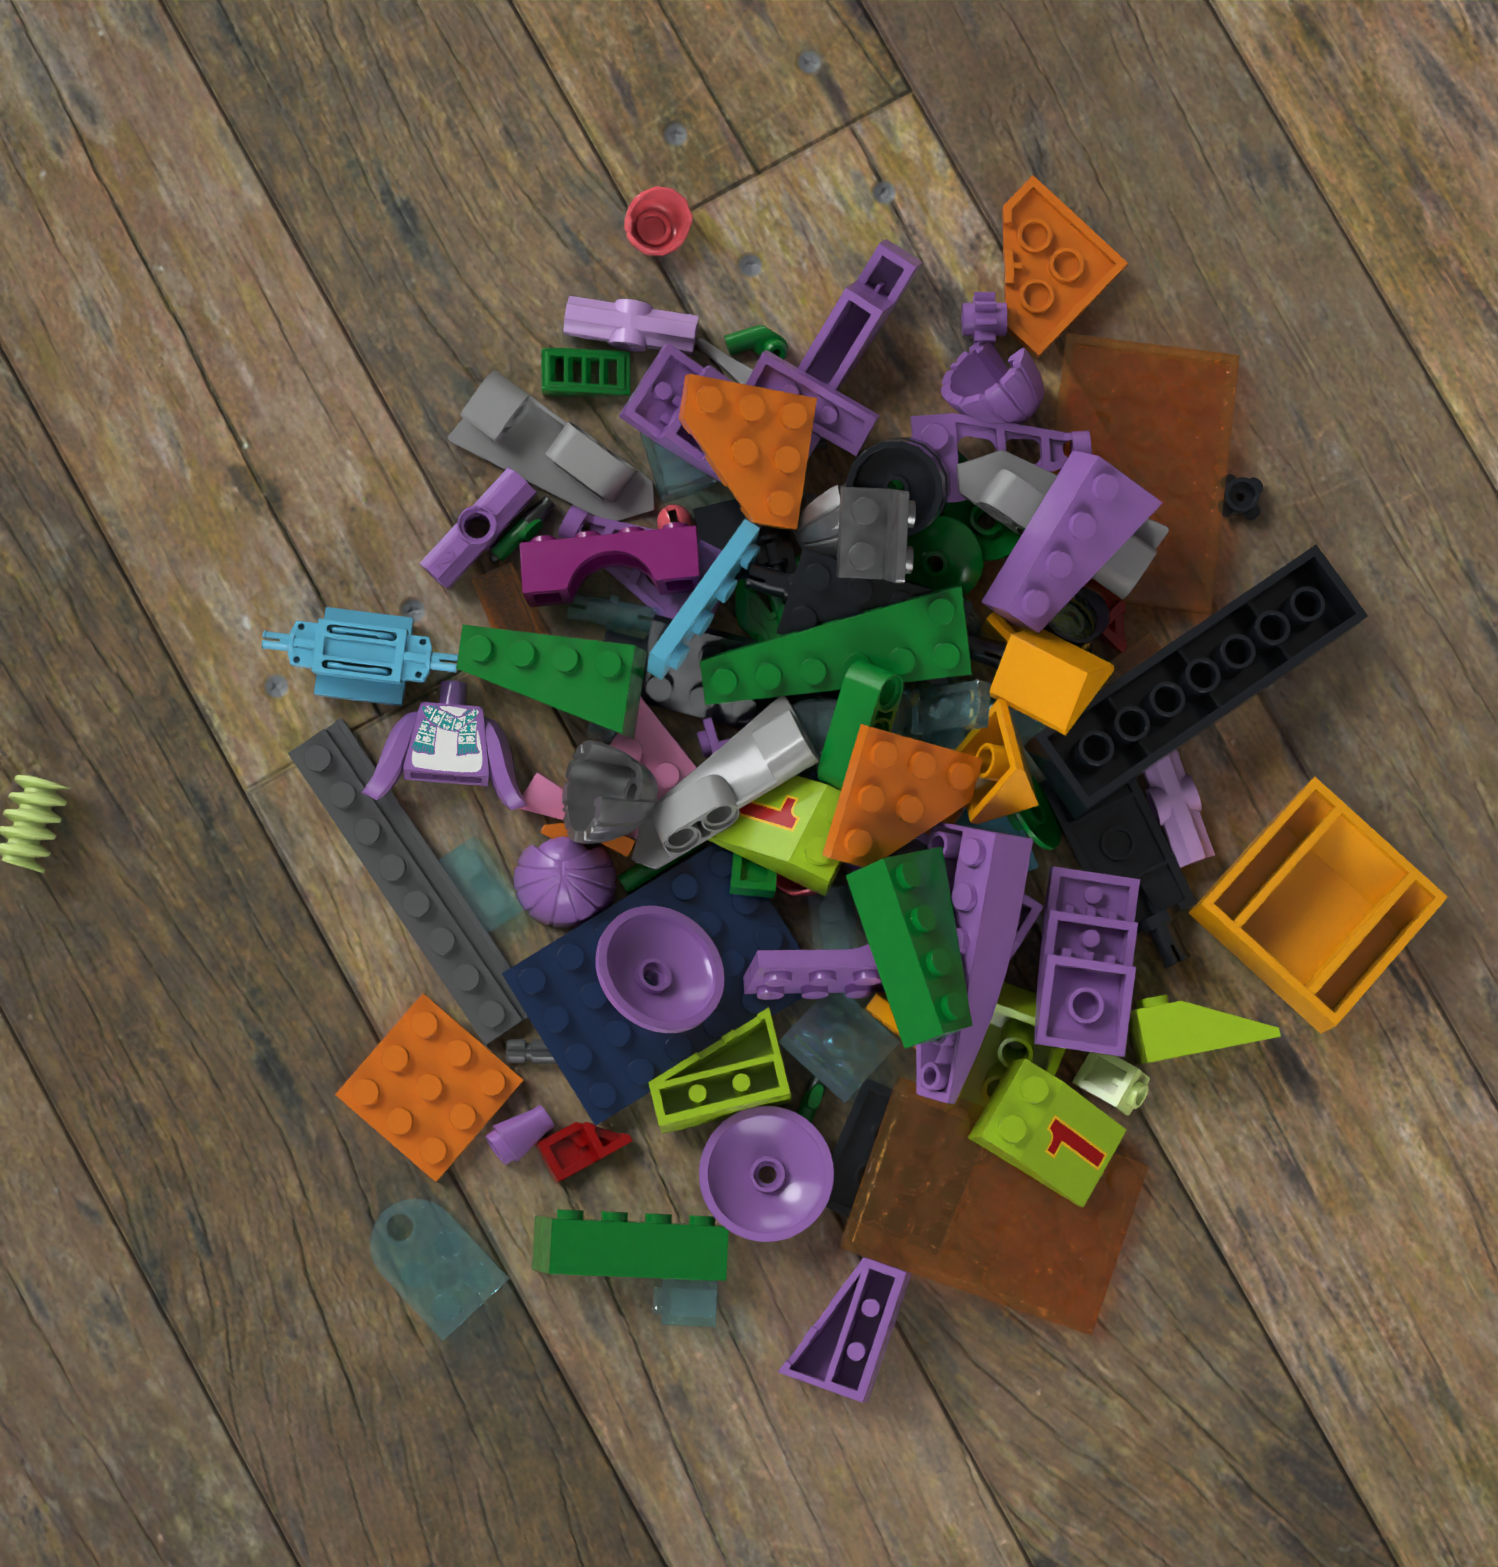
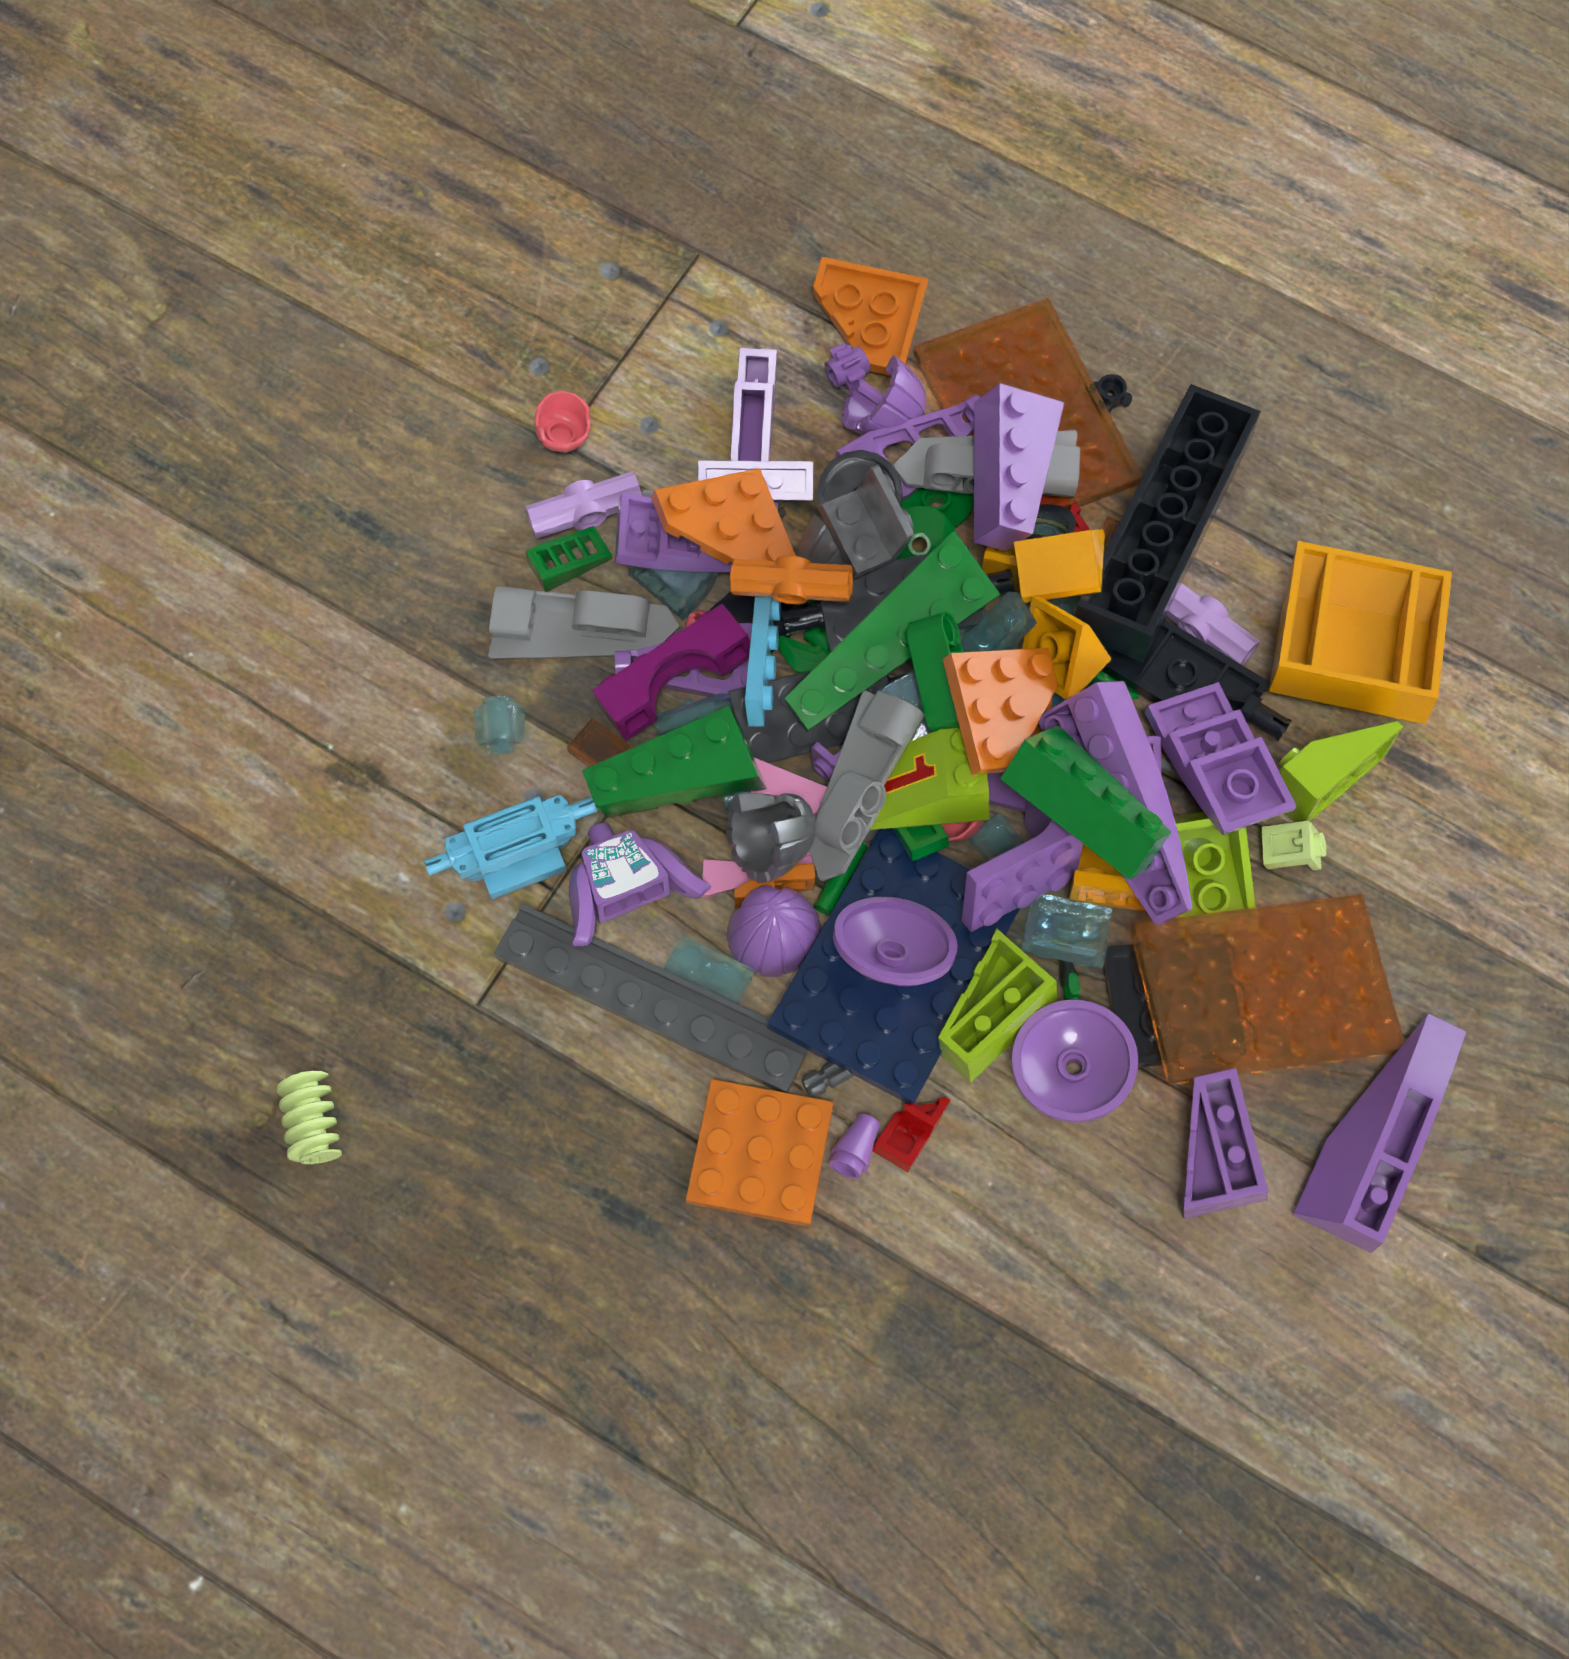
camera: 25 degrees left, 15 degrees down
(417, 520) = (499, 724): none -> clear light blue head
(437, 1267) = (852, 1291): clear light blue plate -> none
(498, 507) = (545, 726): medium lavender piece -> none
(524, 529) = (589, 680): green piece -> none
(630, 1248) = (998, 1182): green wedge -> none
(686, 1302) = (1073, 1202): clear light blue brick -> none
(757, 340) = (684, 469): green arm -> none
(772, 546) = (791, 580): none -> orange piece
(1012, 1405) = (1380, 1140): none -> medium lavender wedge
(1048, 1131) = (1271, 899): lime slope -> none

